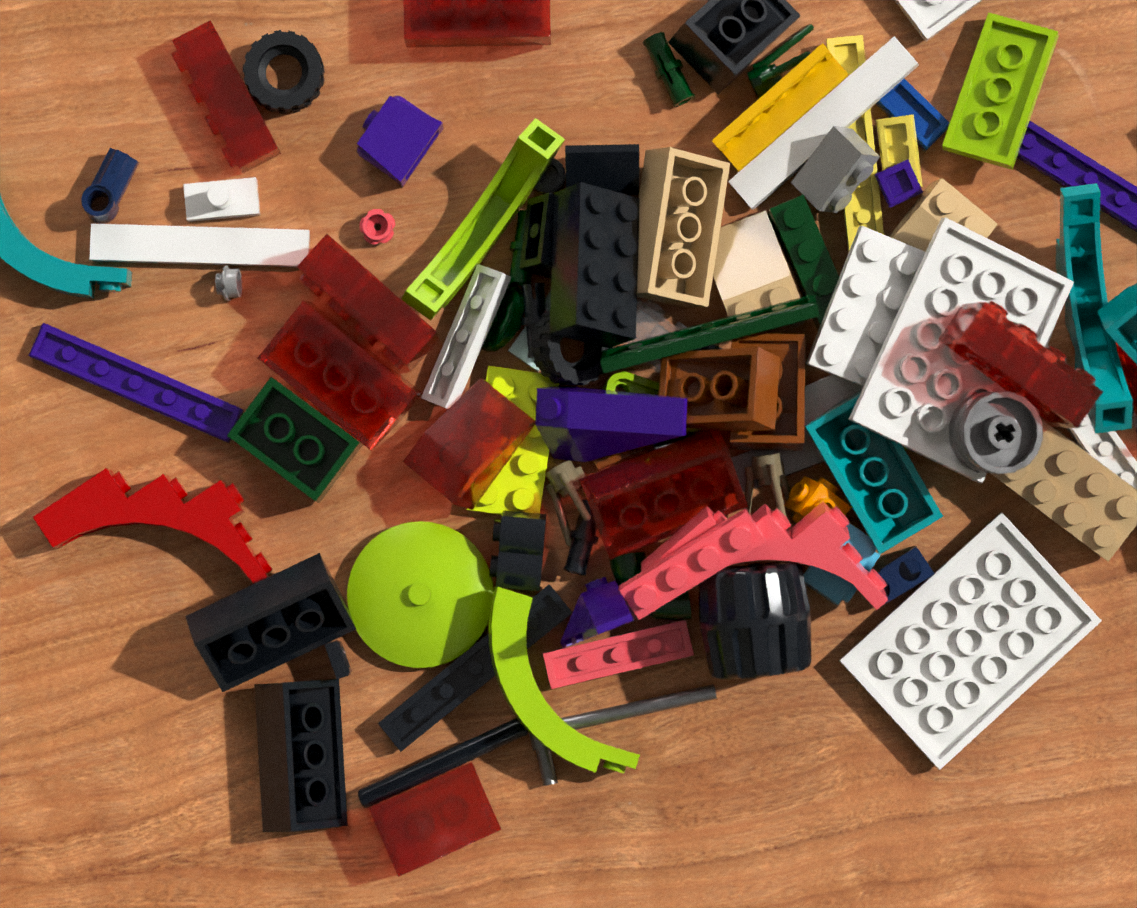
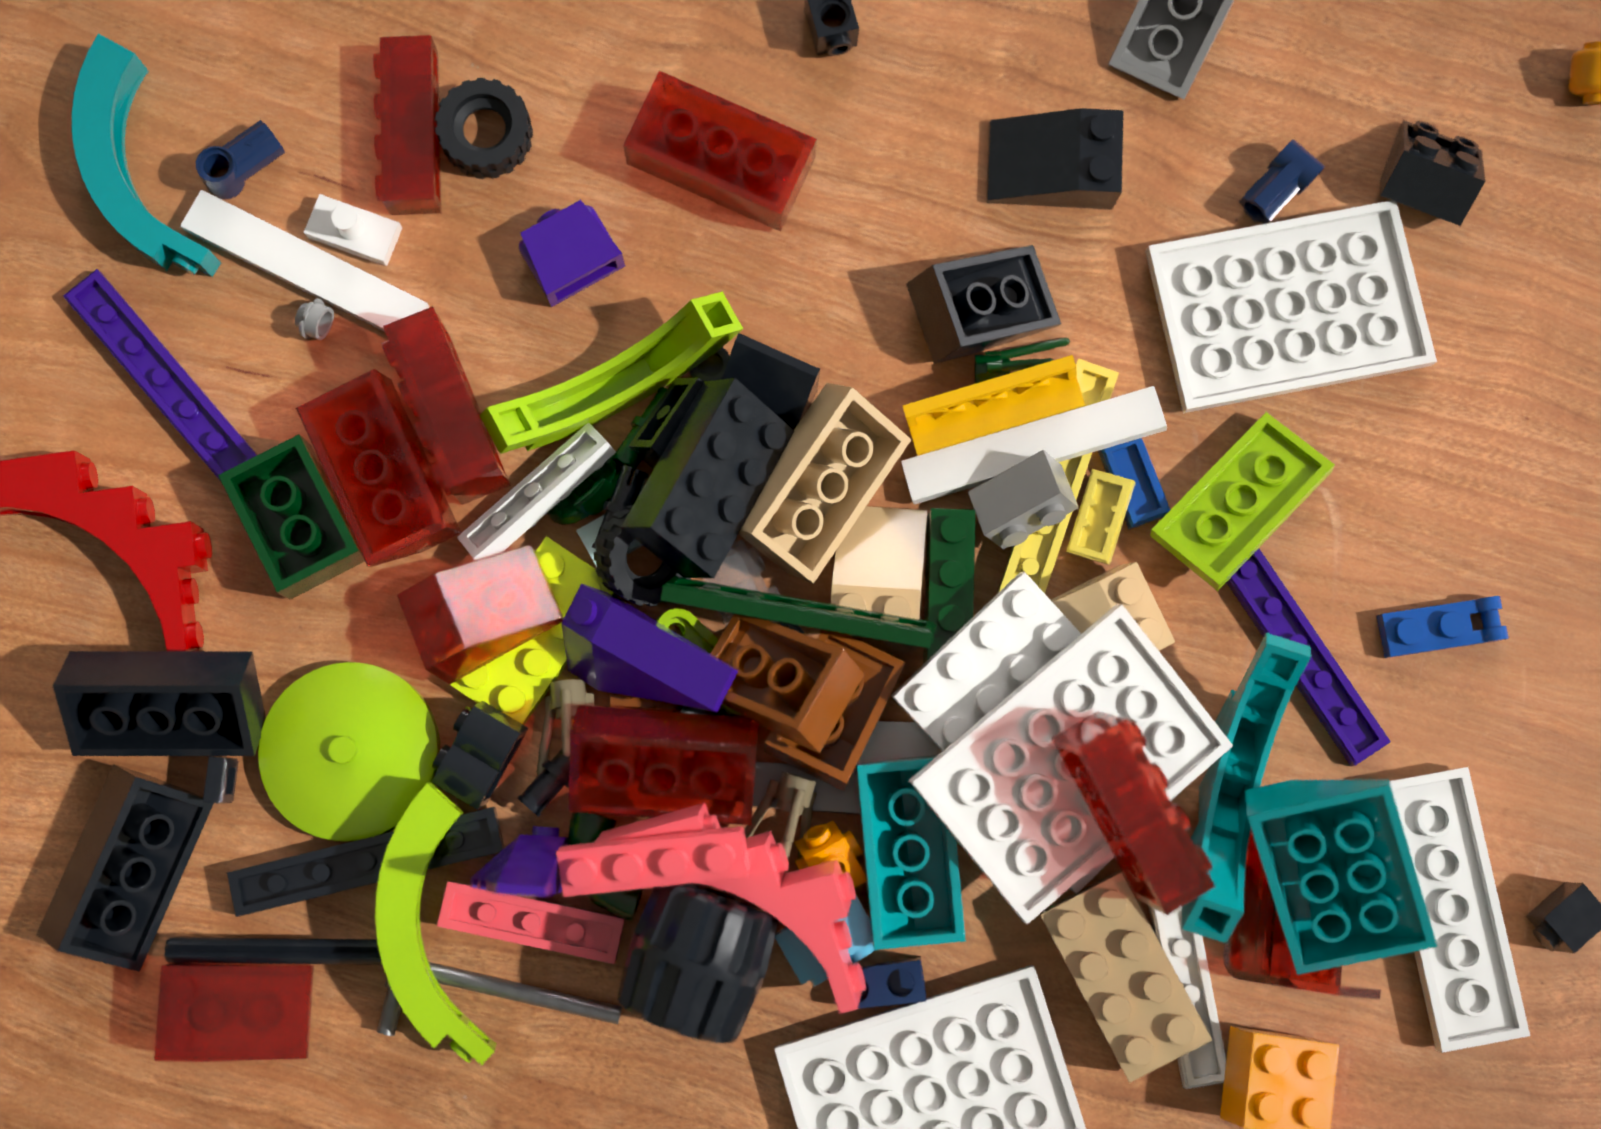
camera: 15 degrees right, 5 degrees down
(375, 217) = (497, 324): coral plate -> none
(668, 69) = (893, 313): dark green pin -> none
(898, 183) = (1085, 548): dark purple tile -> none
(1017, 432) = (1089, 860): flat silver wheel -> none

